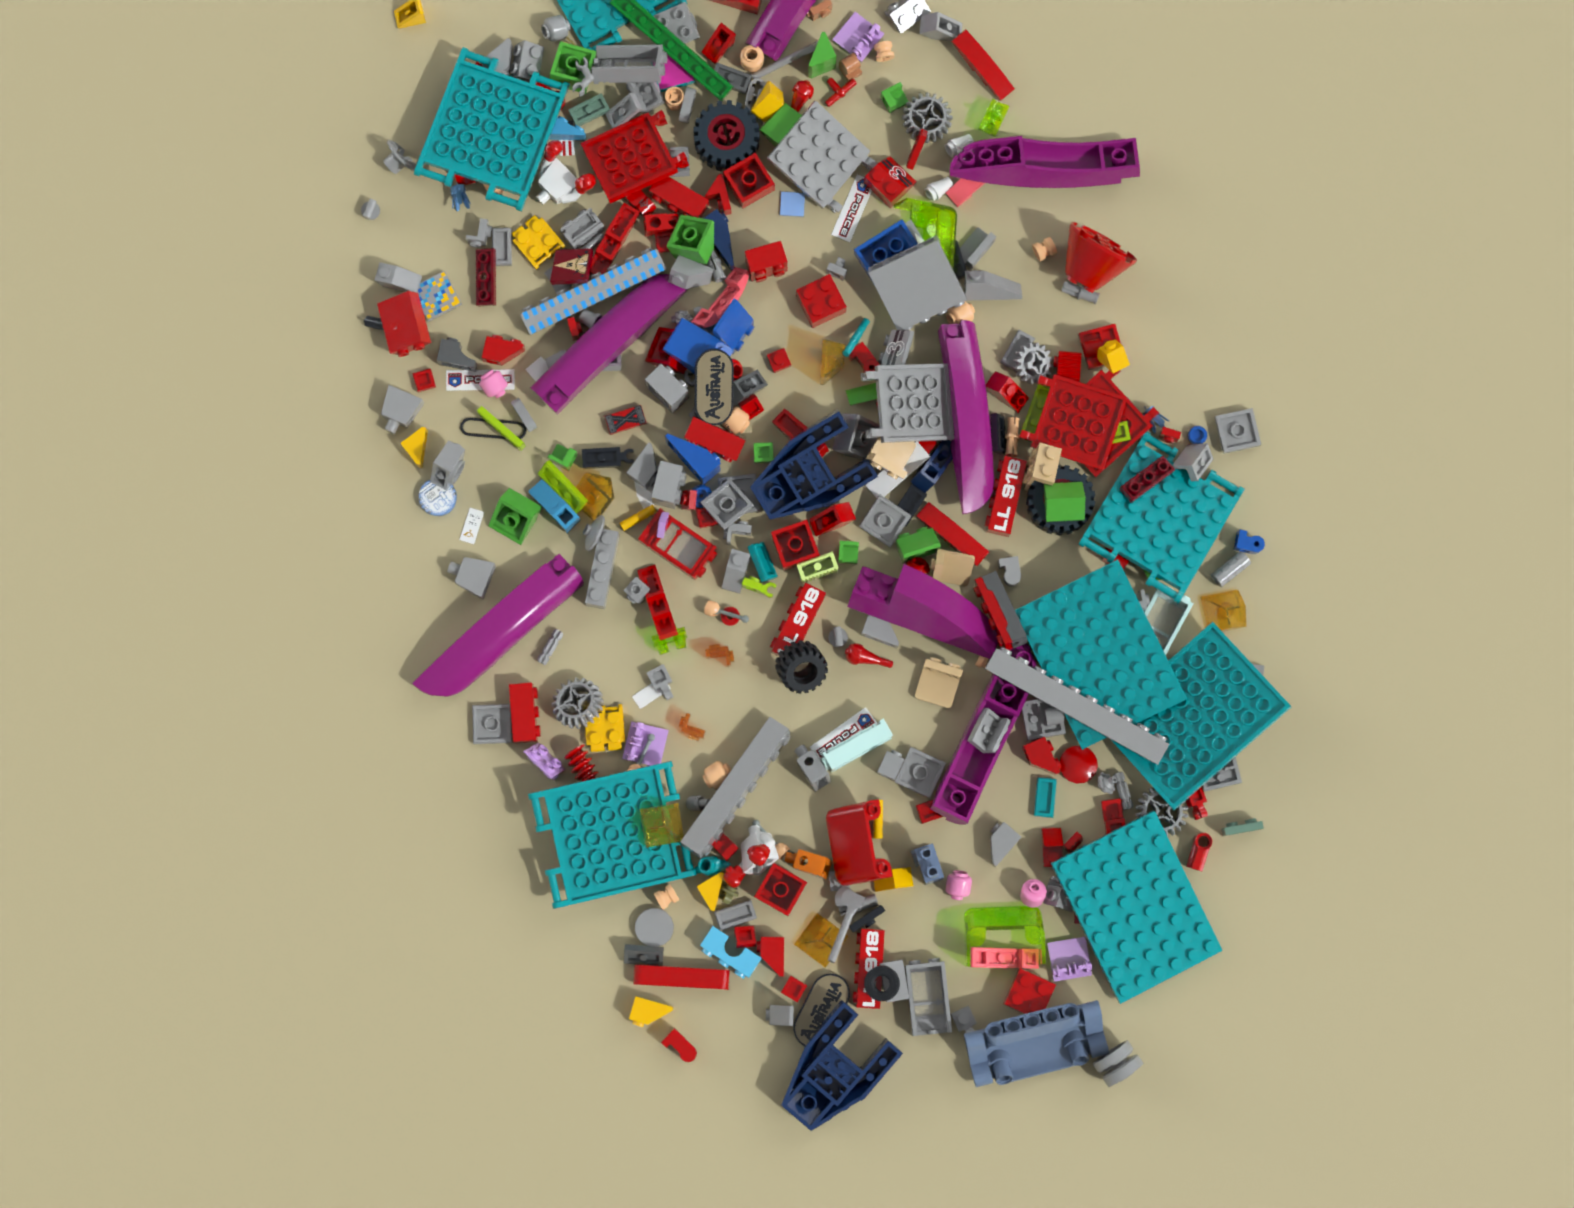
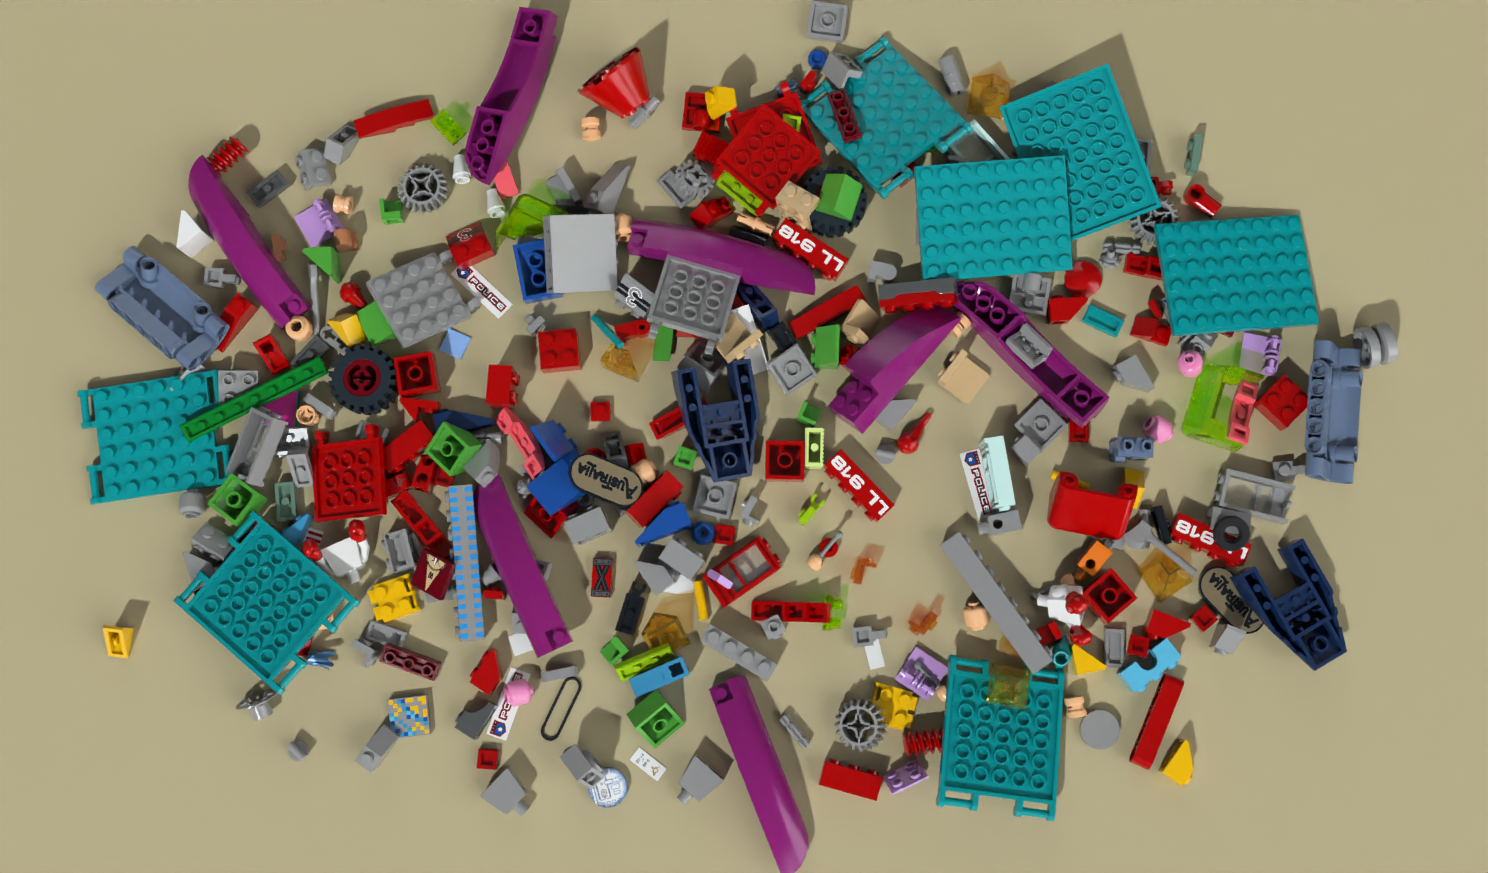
camera: 65 degrees left, 0 degrees up
(402, 323) = (424, 760): red piece -> none
(416, 445) = (550, 791): yellow slope -> none
(492, 724) = (849, 814): light grey tile -> none
(499, 427) = (565, 701): lime tile -> none
(587, 80) = (255, 489): light grey arm -> none
(593, 532) = (701, 647): light grey dish -> none
(643, 955) = (1124, 748): dark grey plate -> none
(681, 1044) = (1220, 745): red leg -> none
(688, 500) = (703, 545): red plate -> none
(696, 803) = (996, 644): light grey cylinder -> none
(726, 504) = (722, 510): light grey slope -> none
(728, 893) = (1093, 647): olive plate -> none
(735, 571) = (787, 526): light grey slope -> none
(762, 561) = (788, 498): teal tile -> none
(808, 677) = (904, 497): black tyre -> none
(832, 518) = (771, 417): red slope -> none
(840, 92) = (364, 259): red piece -> none
(917, 147) = (450, 207): red tile -> none
(1077, 706) = (1040, 253): light grey brick -> none
(1248, 544) = (935, 52): blue leg -> none

